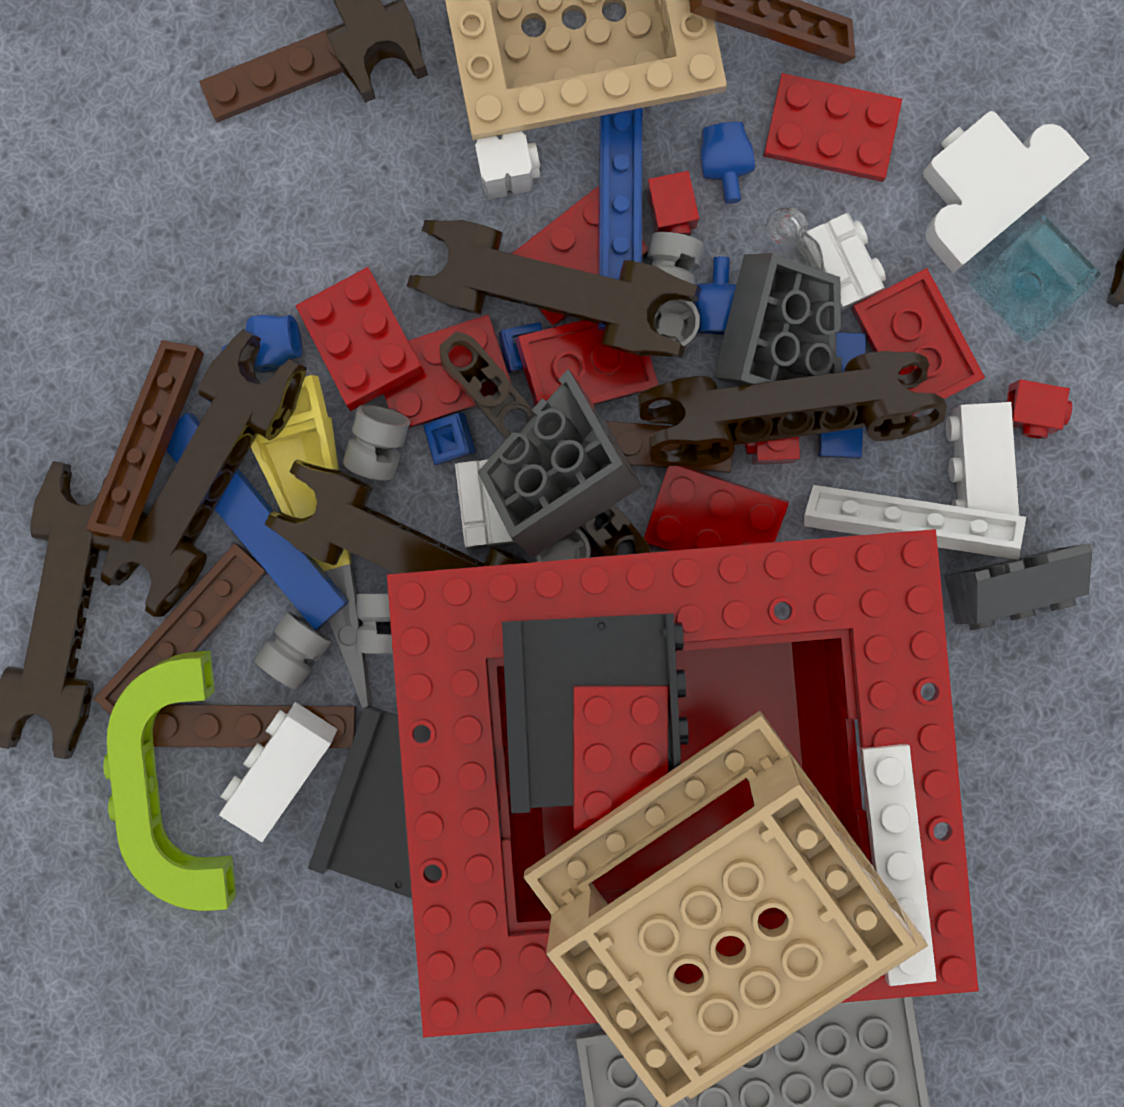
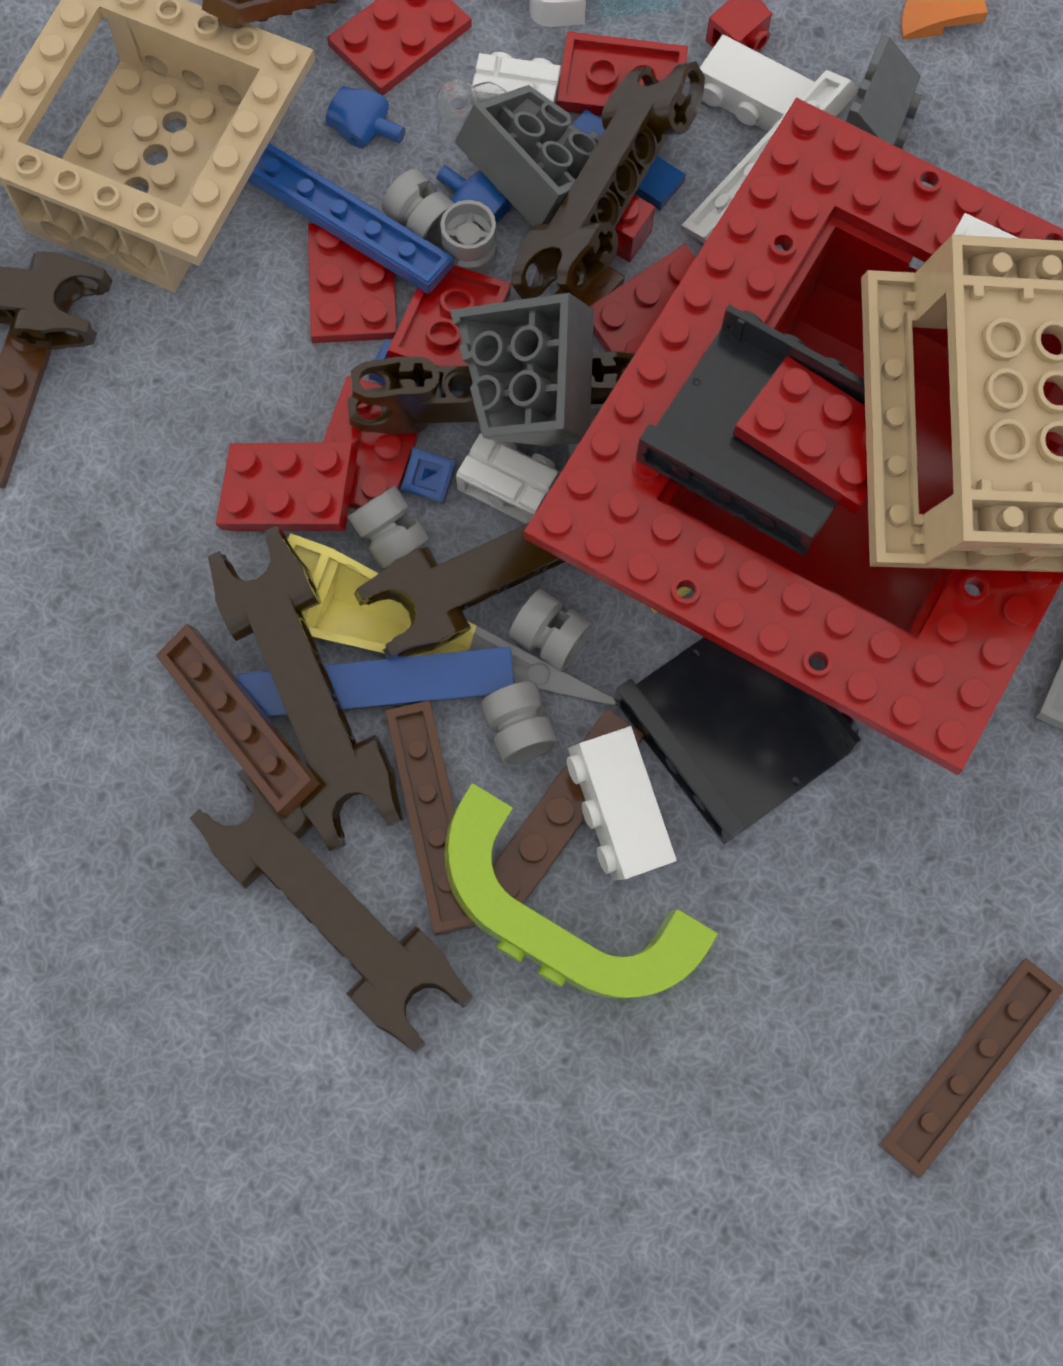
camera: 60 degrees left, 15 degrees down
(278, 342) = (240, 552): blue piece -> none
(507, 164) = (236, 270): white brick -> none
(622, 305) = (422, 250): dark brown piece -> none
(673, 203) = (367, 174): red brick -> none

